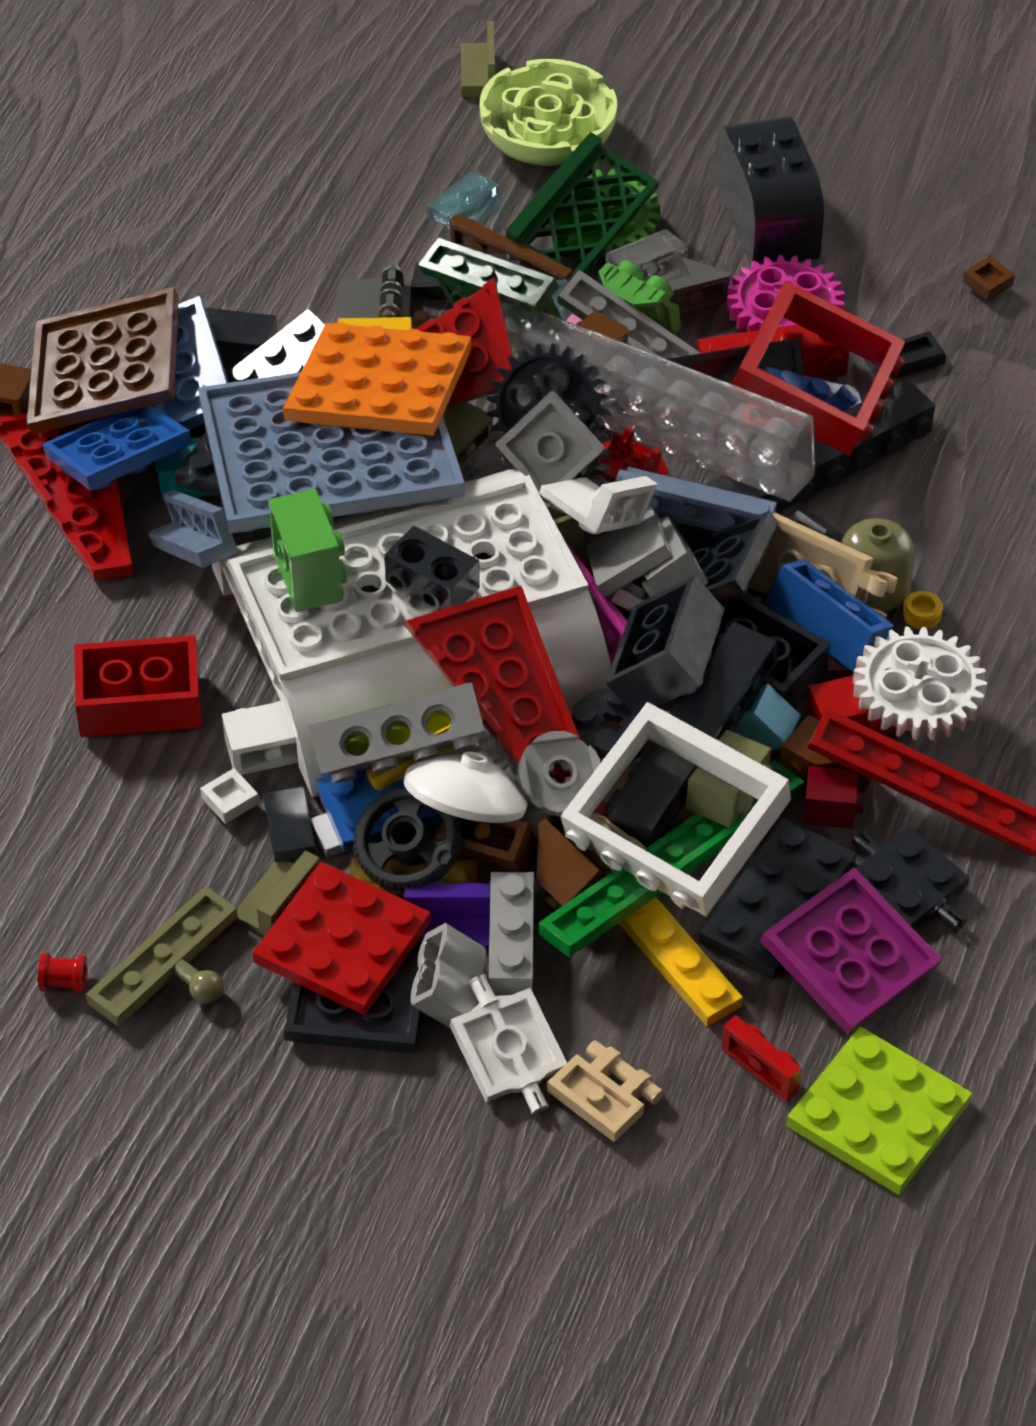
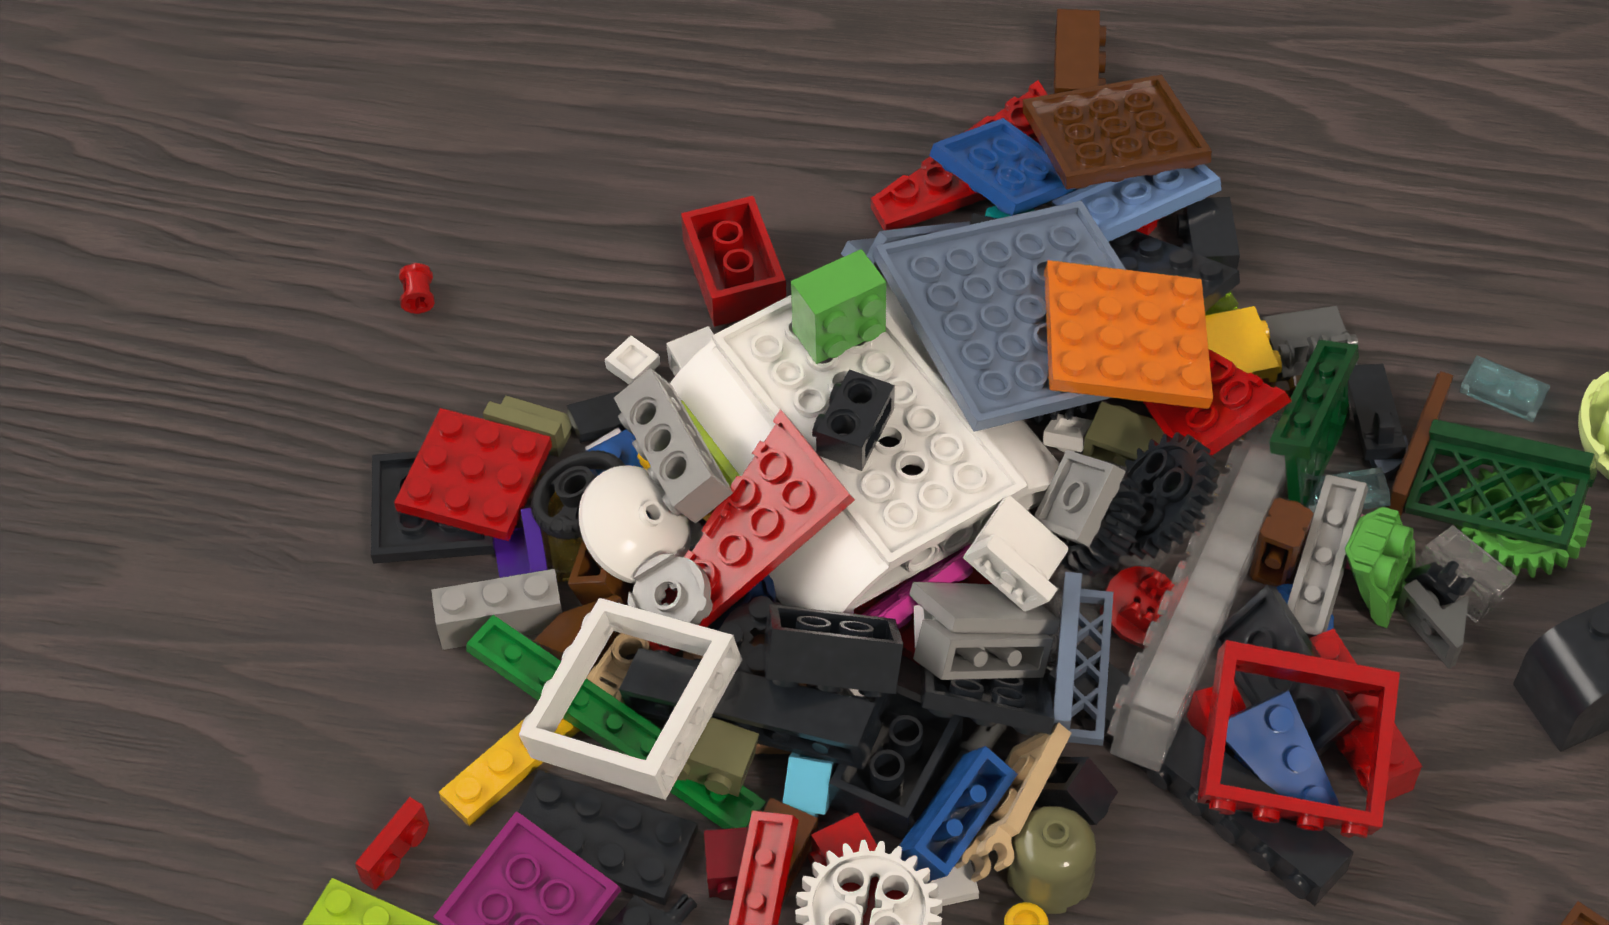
camera: 80 degrees right, 5 degrees up
(164, 956) = (446, 355): olive plate -> none
(445, 967) = (441, 563): light grey brick -> none
(508, 1044) = (378, 629): white plate -> none
(598, 1098) = (335, 713): tan plate -> none
(668, 264) = (1441, 581): none -> black plate
(757, 288) = (1494, 718): dark pink gear -> none
(920, 353) = (1420, 860): black tile -> none

